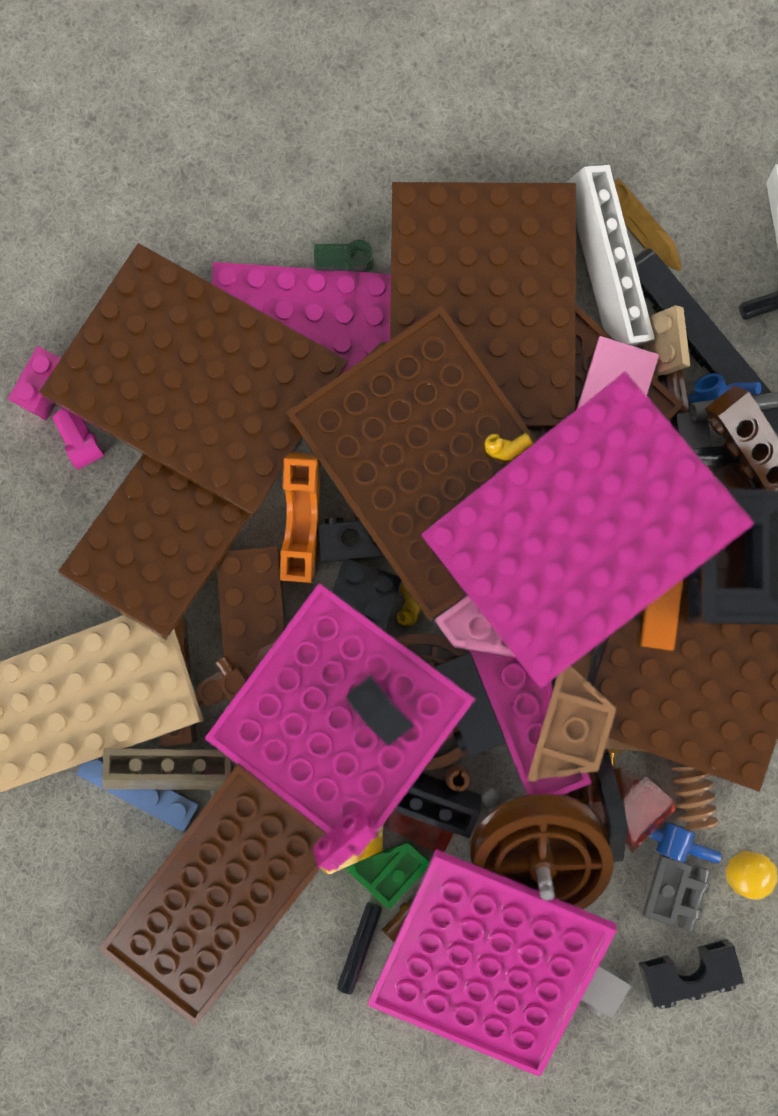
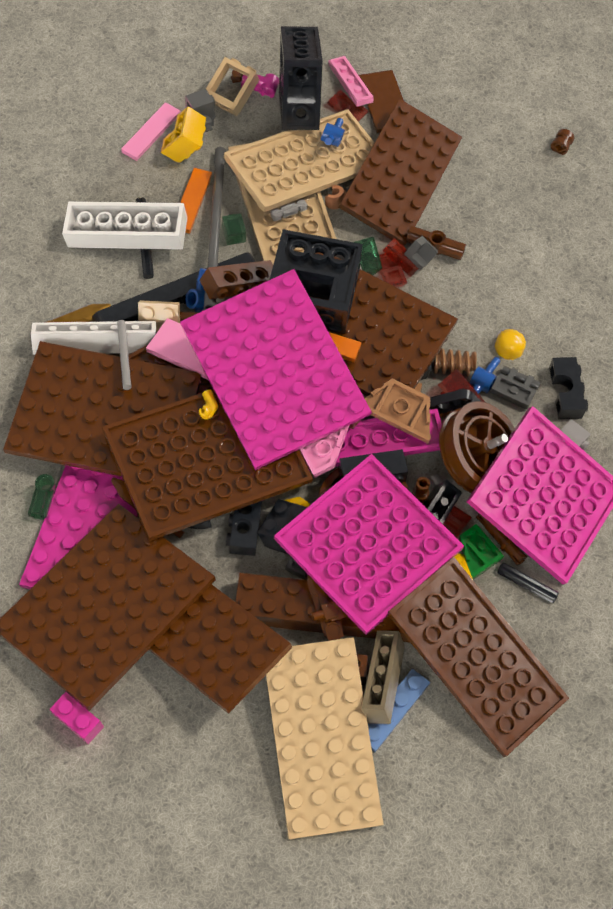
camera: 85 degrees left, 25 degrees down
(79, 442) = (130, 700): dark pink piece -> none
(302, 493) = (202, 545): orange arch -> none
(333, 848) = (447, 544): dark pink hinge -> none
(379, 710) = (366, 509): black slope -> none
(575, 306) = (124, 358): none -> light grey bar

